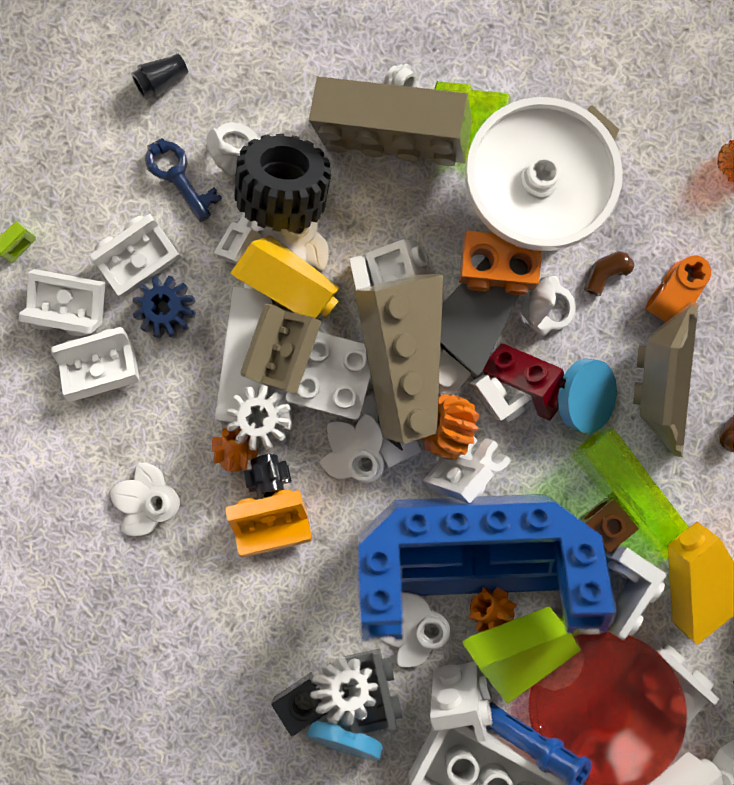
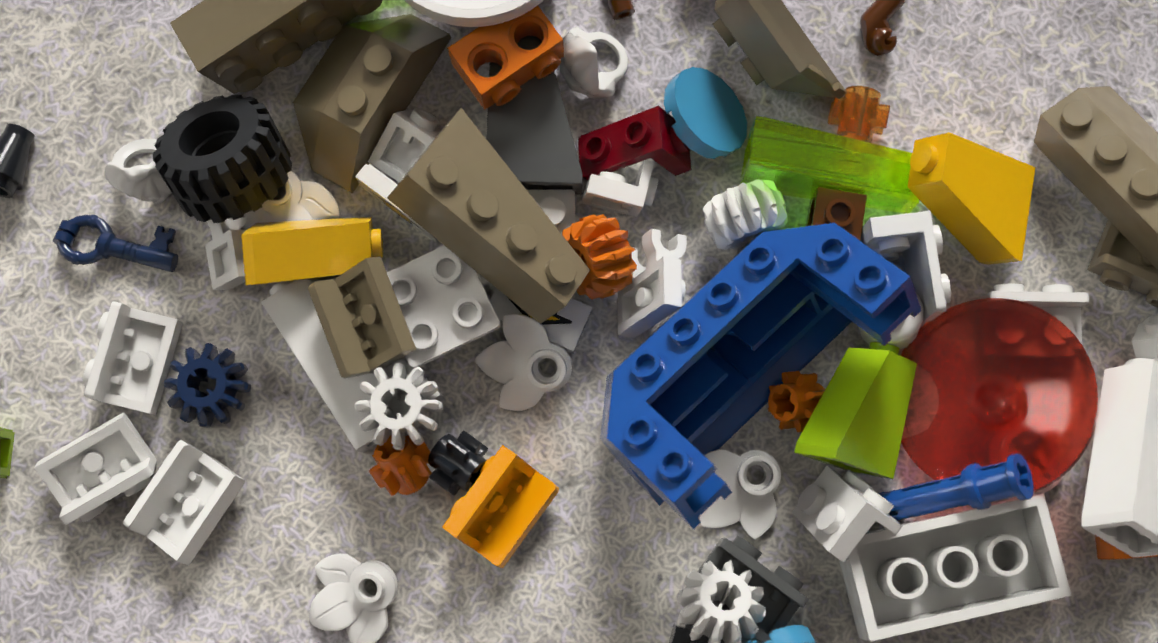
camera: 40 degrees left, 5 degrees down
(398, 205) = (358, 86): none -> dark tan wedge
(557, 476) = (744, 213): none -> white gear
(678, 474) = (859, 113): none -> clear orange gear

